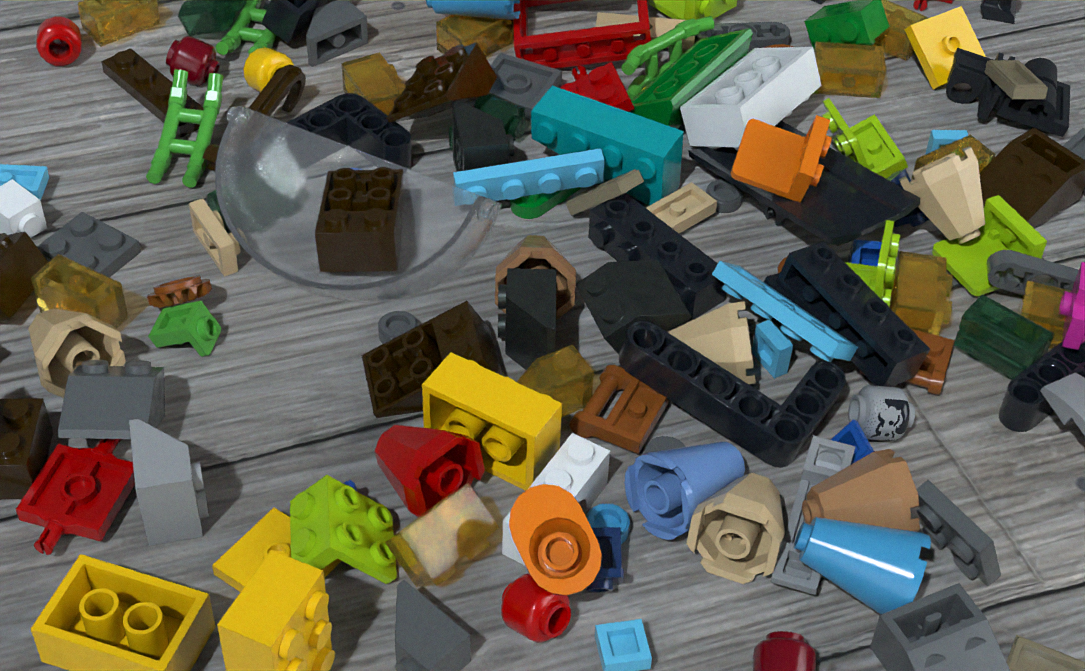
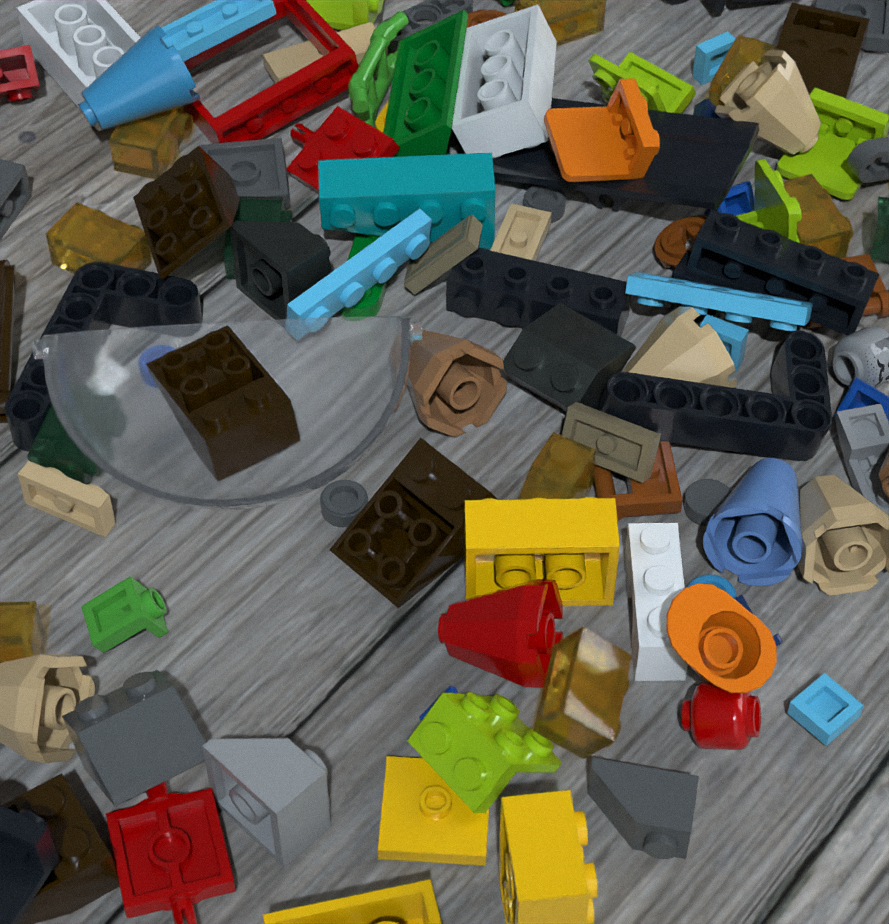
camera: 30 degrees left, 5 degrees up
(179, 291) = (87, 578): dark orange gear -> none
(529, 314) = (490, 426): pearl dark grey slope -> none
(613, 372) = (618, 443): none -> dark tan plate

